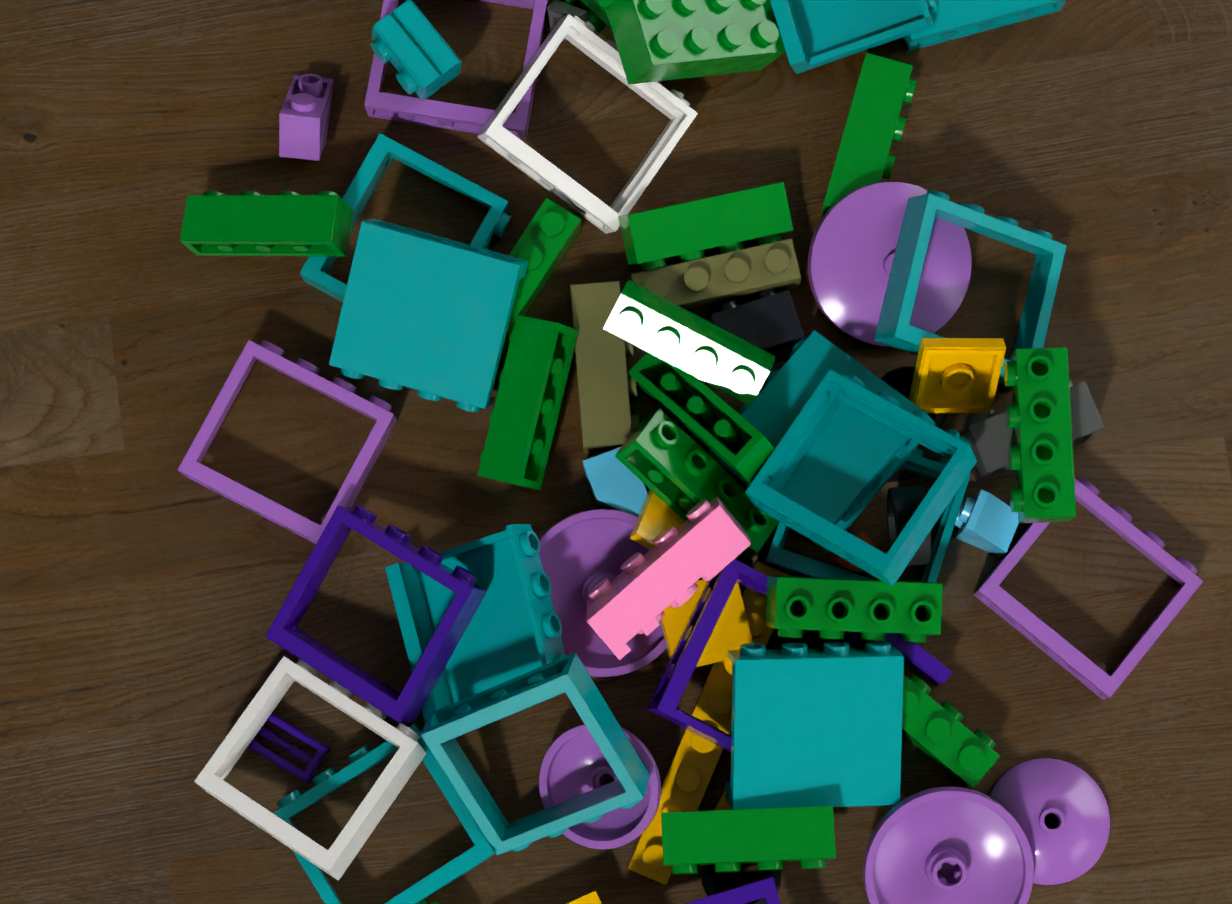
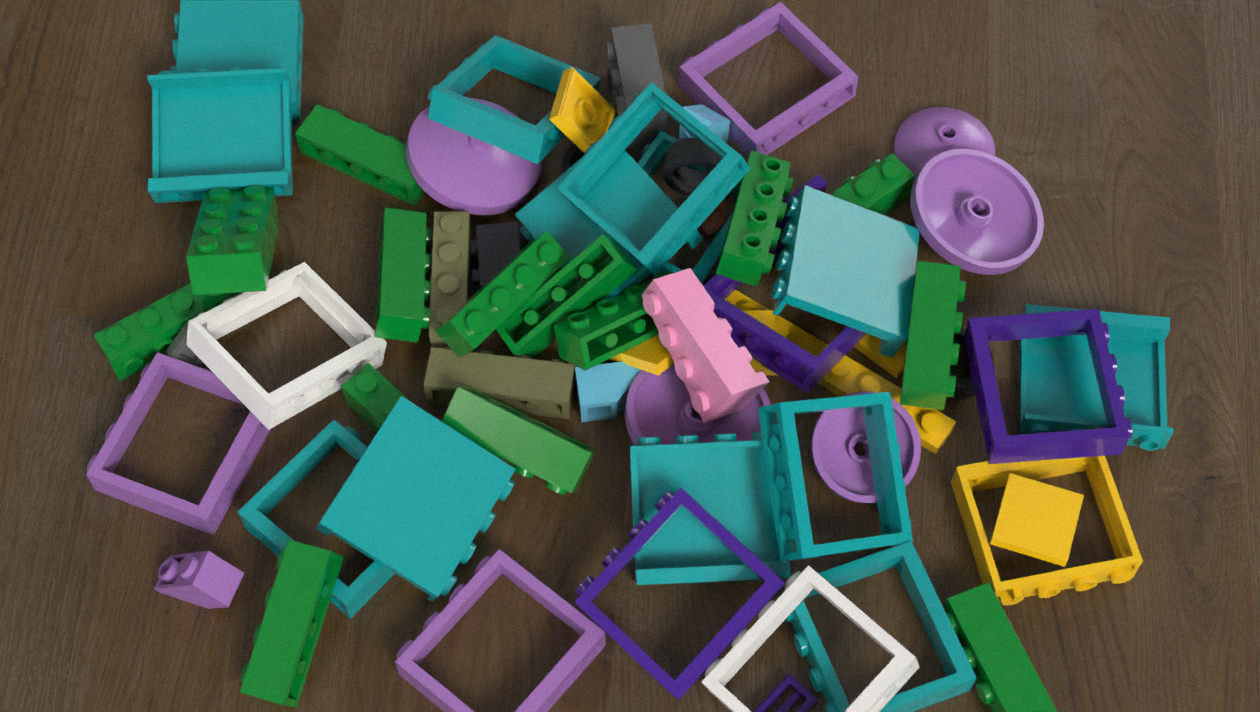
camera: 80 degrees left, 20 degrees down
(414, 50) = (173, 459): teal brick -> none
(1041, 435) = (649, 55): green brick -> none

